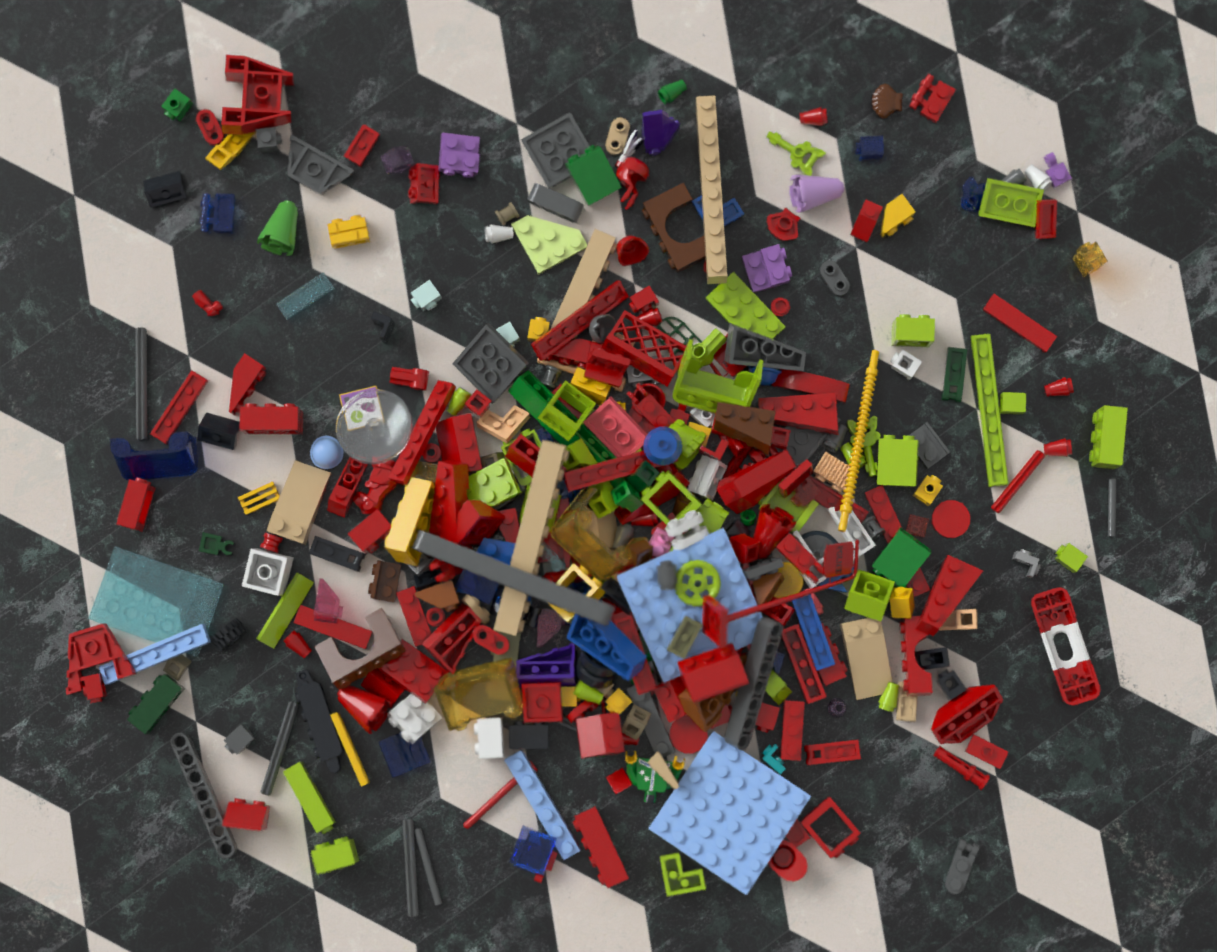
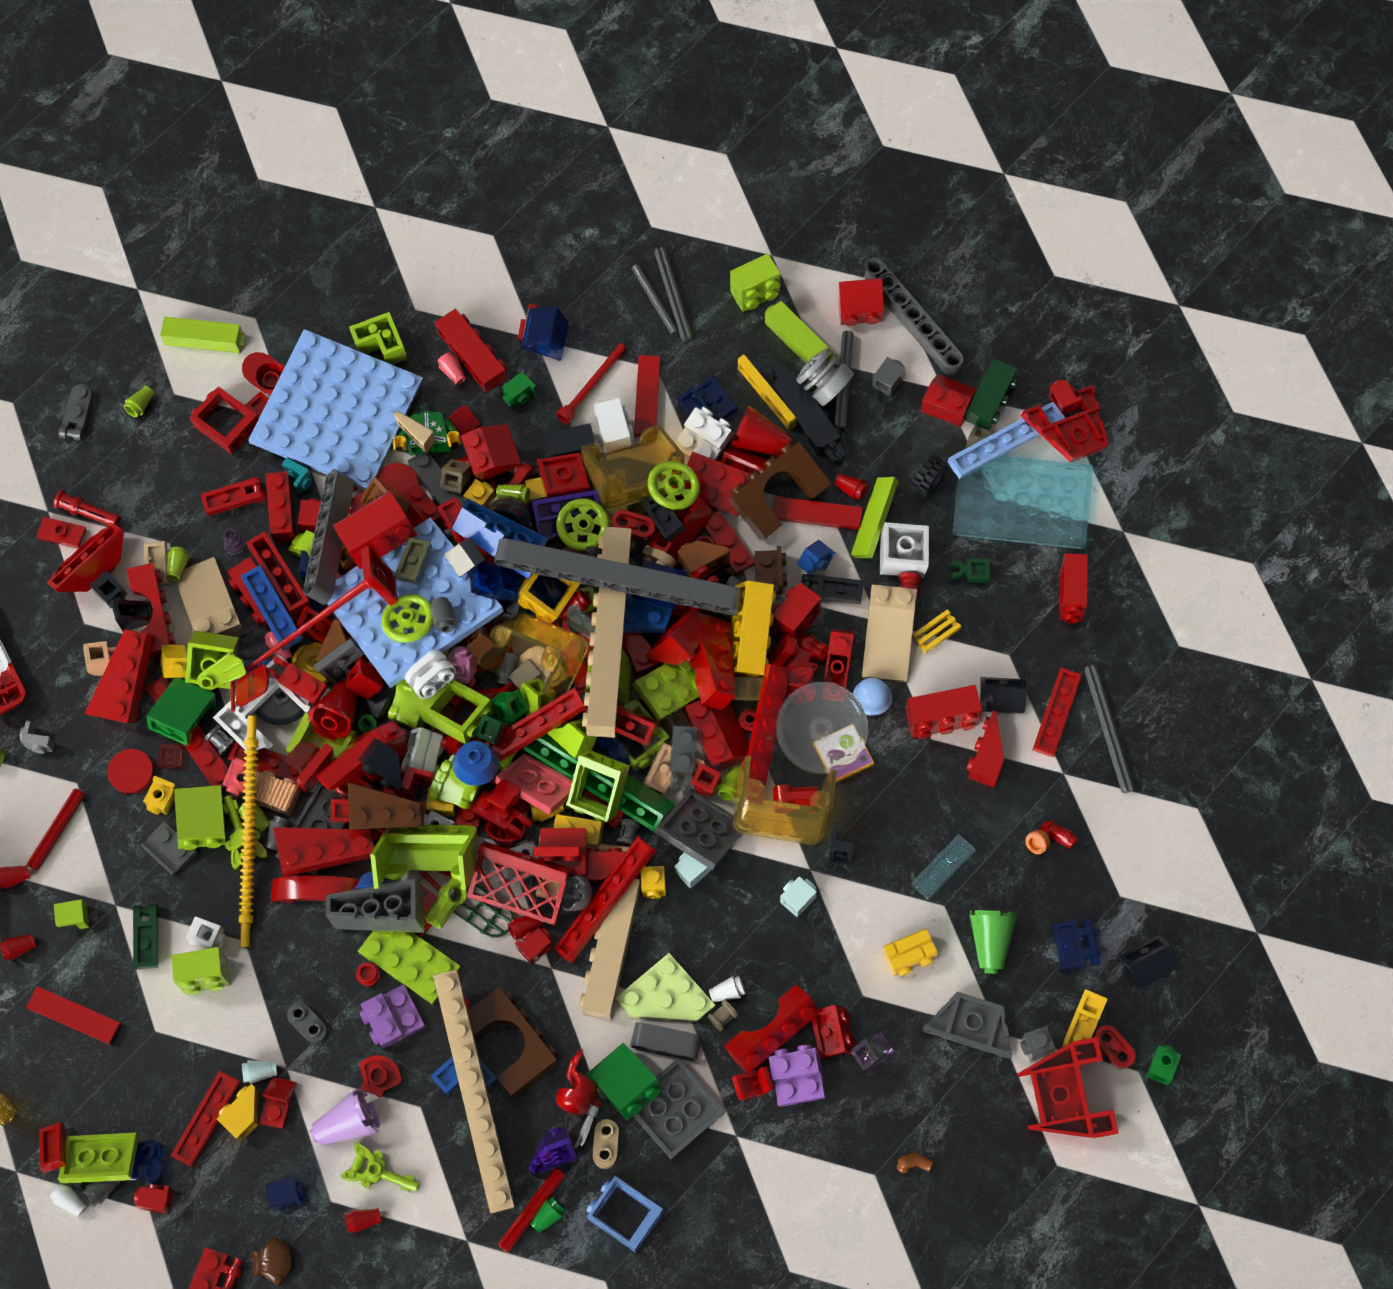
camera: 170 degrees right, 15 degrees down
(154, 464) = (1096, 635): clear blue windscreen -> none
(192, 709) = (948, 399): none -> red slope
(224, 300) = (1037, 841): none -> orange tile
(295, 742) = (824, 376): none -> light grey wheel
(327, 604) = (828, 529): clear pink slope -> none
(343, 581) = (816, 557): none -> blue brick
(362, 145) = (921, 1064): red plate -> none
(386, 75) = (914, 1159): none -> dark orange arm
(389, 501) = (783, 650): none -> red plate
(446, 364) = (779, 819): none -> clear yellow windscreen
(454, 771) = (646, 393): none -> red tile
(464, 642) = (664, 518): none -> black plate
(464, 664) = (670, 501): none -> lime plate
(489, 180) = (753, 1047): none -> red arch
(492, 427) = (682, 754): none -> dark grey hinge
(494, 156) = (753, 1084): none -> red bracket
(542, 804) = (545, 380): light blue plate -> none
(548, 657) = (564, 517): none -> lime plate
(566, 798) = (518, 390): none -> green brick
(608, 524) = (525, 672): none -> dark tan slope
(609, 57) = (645, 1227): none -> medium blue window
(620, 835) = (451, 367): none -> coral cone
(625, 601) = (494, 581): none -> clear blue slope
(631, 250) = (561, 1002): red helmet -> none
(640, 629) = (464, 556): none -> panel
(644, 420) = (504, 795): none -> red slope
(689, 93) = (531, 1210): none -> red axle
(739, 462) = (383, 762): none -> black slope
(838, 918) = (202, 334): none -> lime brick
(862, 580) = (222, 672): none -> lime piece
(864, 493) = (230, 781): none -> coral brick
(878, 247) = (258, 1070): none -> light aqua cone
(903, 864) = (138, 402): none -> lime cone
(924, 220) = (205, 1119): none -> red tile
(972, 164) = (154, 1198): none -> red brick
(989, 410) = (99, 906): lime tile -> none
(1057, 172) = (45, 1214): medium lavender plate -> none

